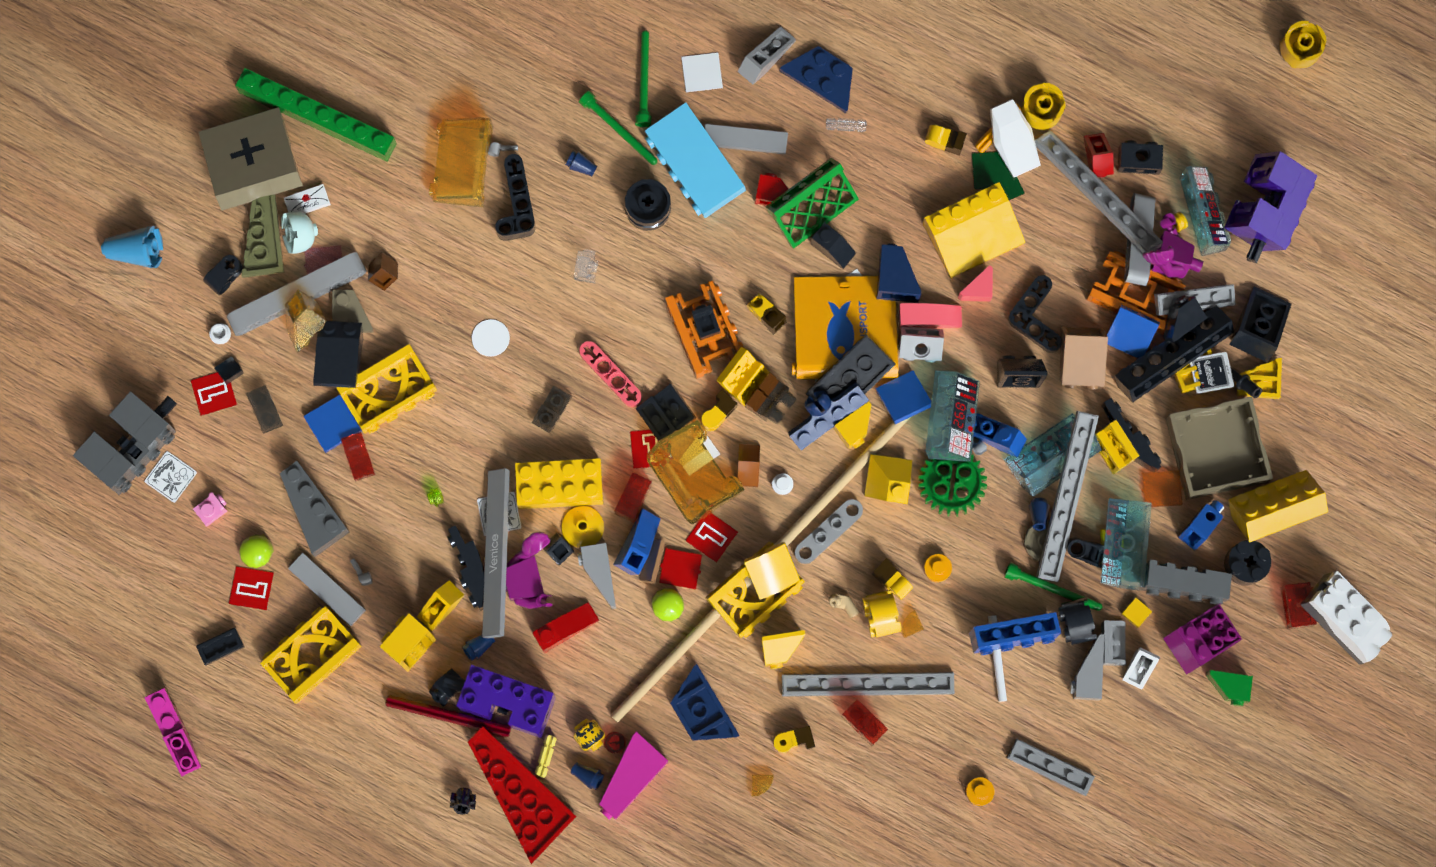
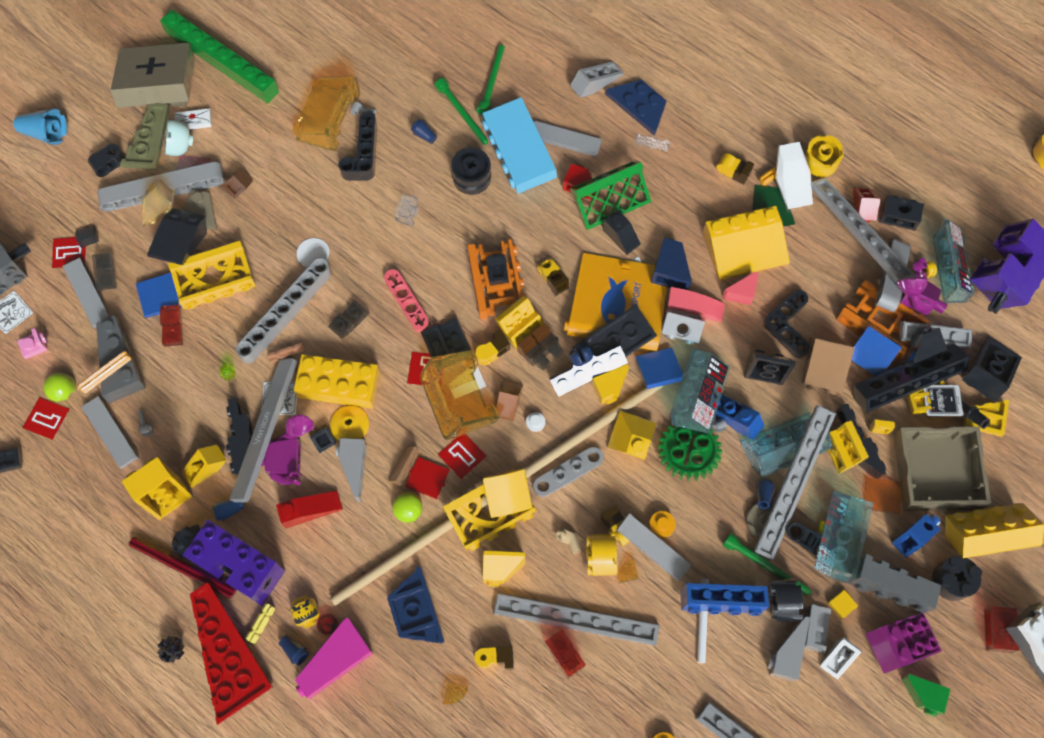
camera: 15 degrees right, 10 degrees down
(220, 333) = (88, 205): white plate -> none
(251, 437) = (86, 292): none -> light grey tile
(306, 684) = (62, 472): yellow fence -> none
(308, 527) = (105, 371): none -> axle
(479, 424) = (282, 319): none -> light grey beam
(493, 461) = (286, 352): none -> nougat axle
(633, 497) = (399, 406): clear red brick -> none
(638, 543) = (393, 446): blue slope -> none
(702, 72) = (541, 84): white sticker -> none
(933, 594) = (653, 547): none -> light grey tile
(1151, 415) = (881, 427): none -> yellow tile

